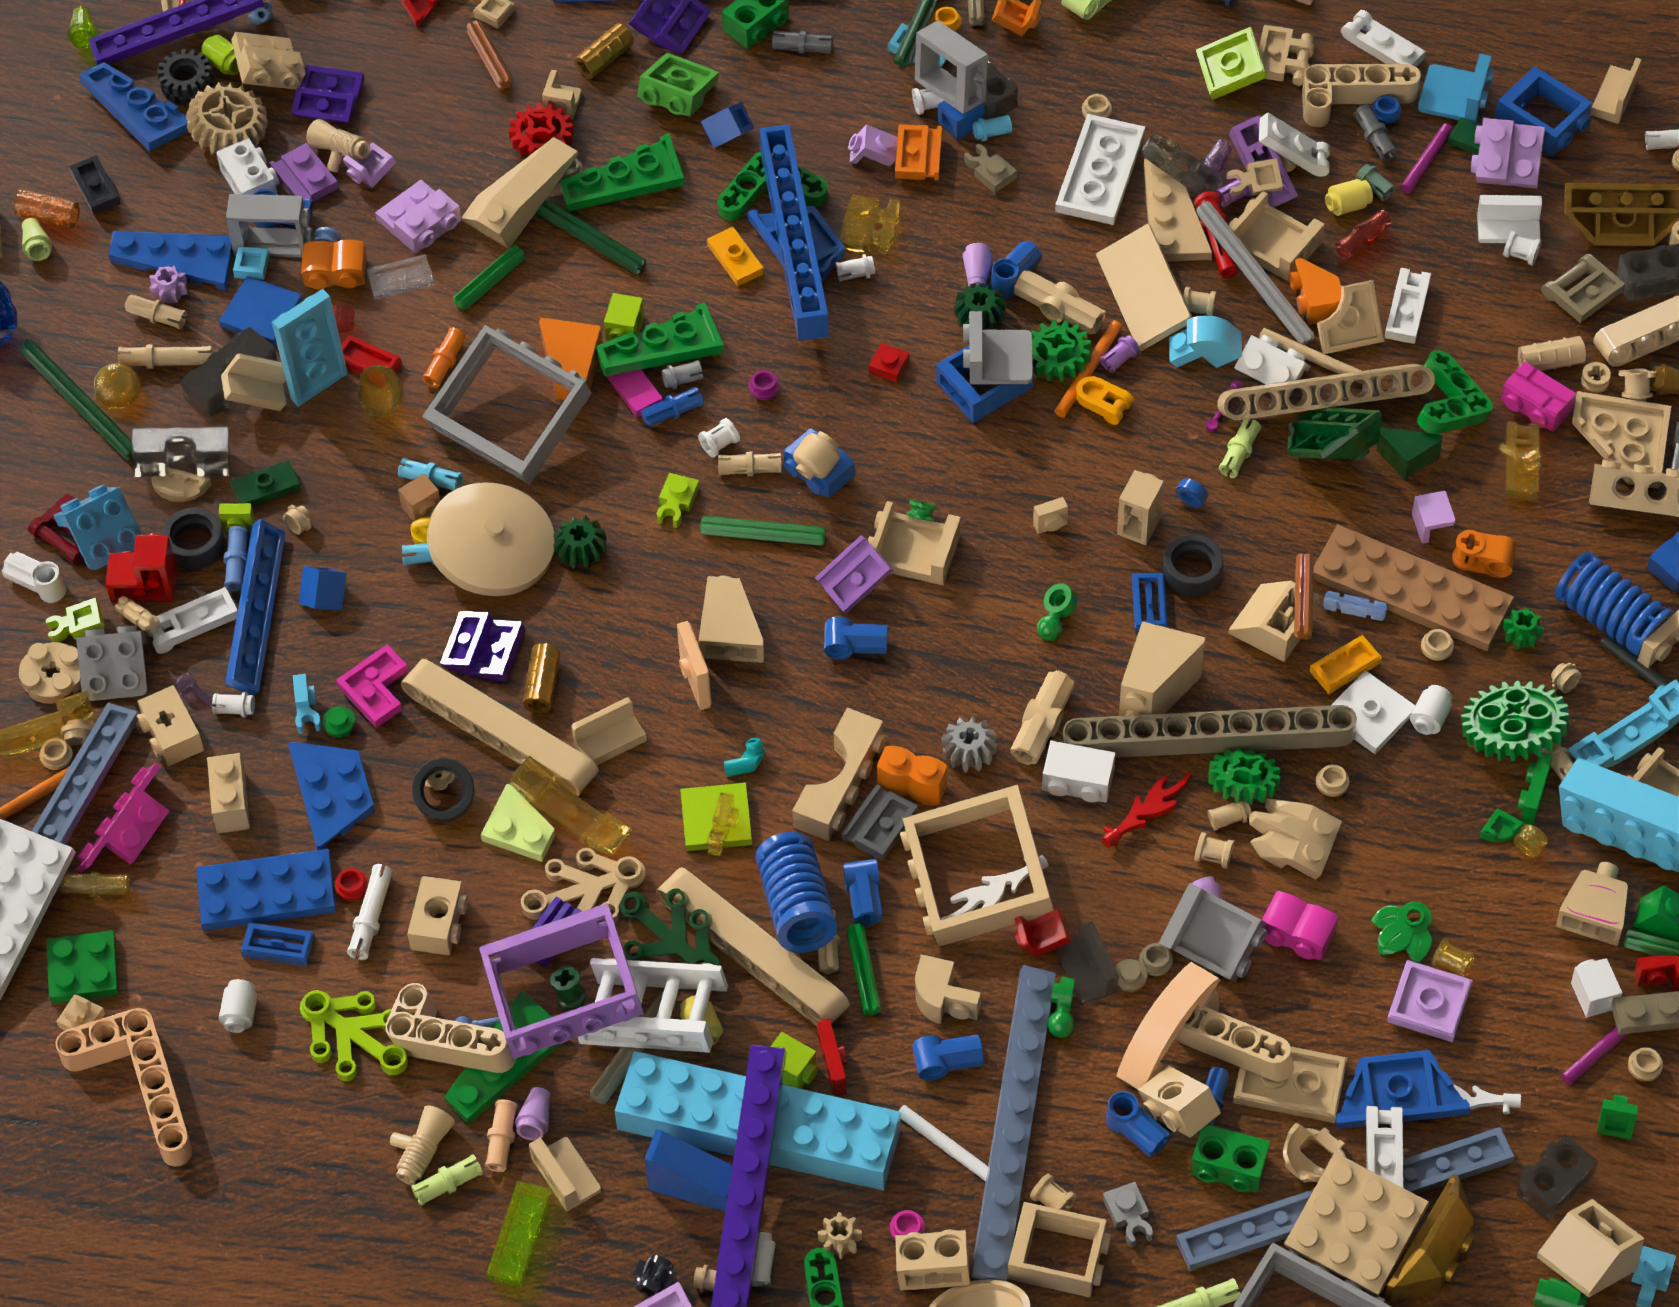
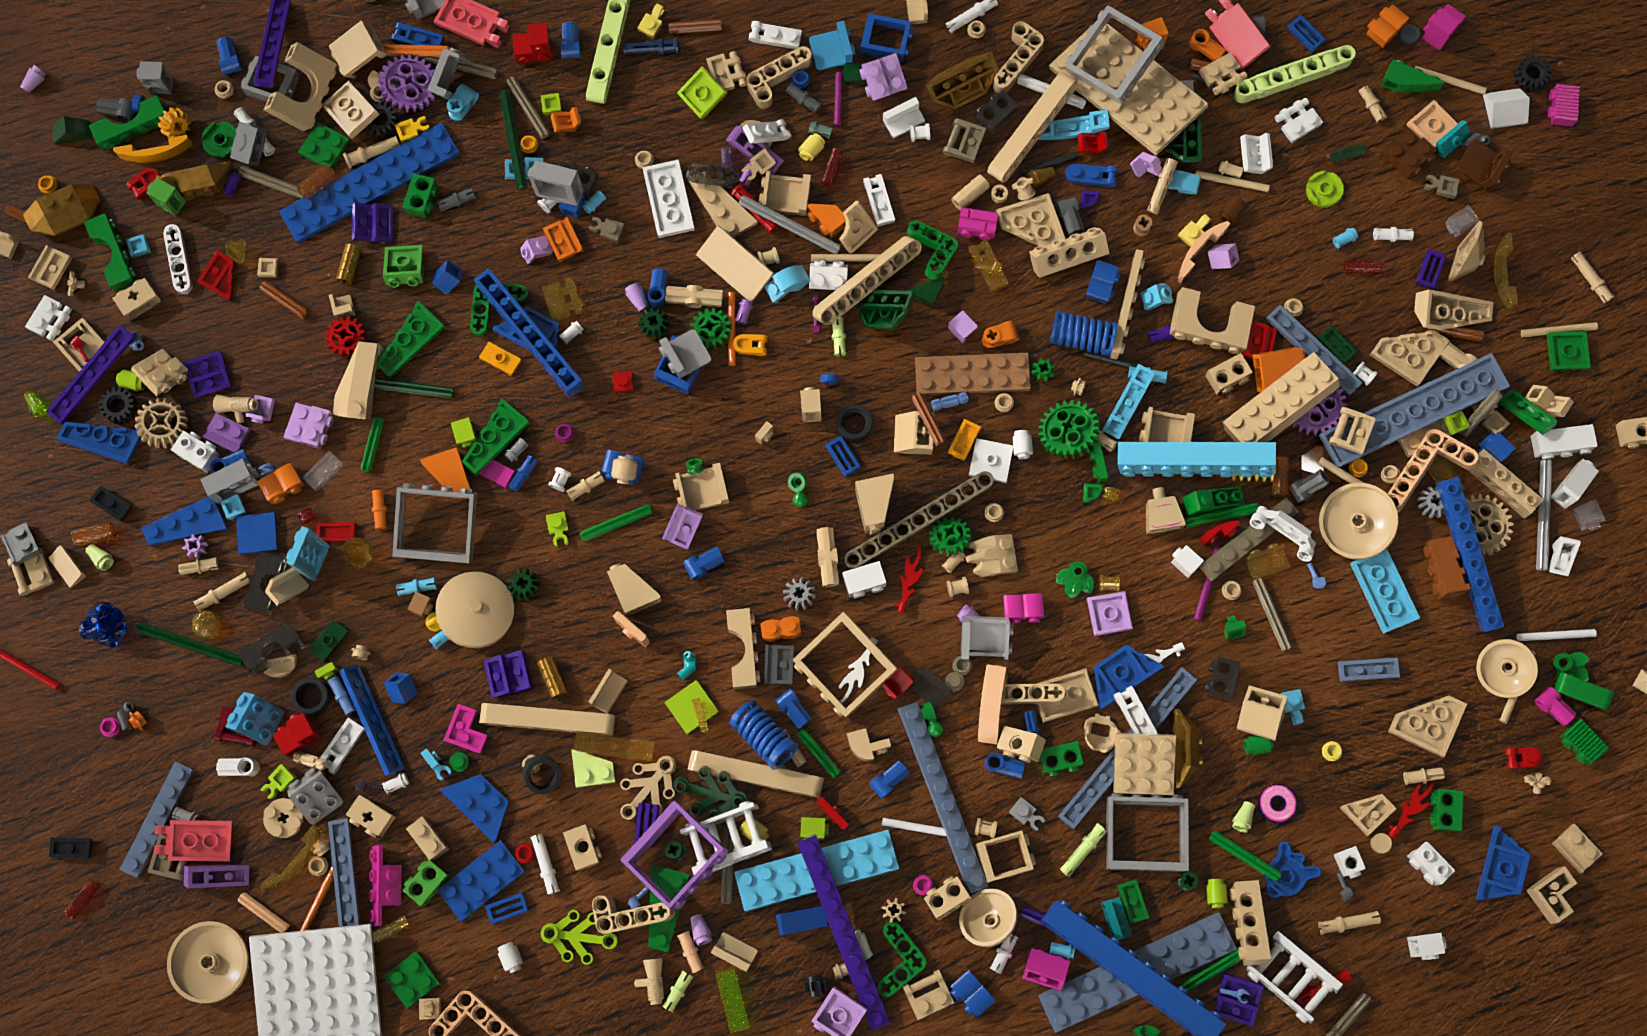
camera: 30 degrees left, 20 degrees up
(188, 853) = (429, 886): none -> bright green brick

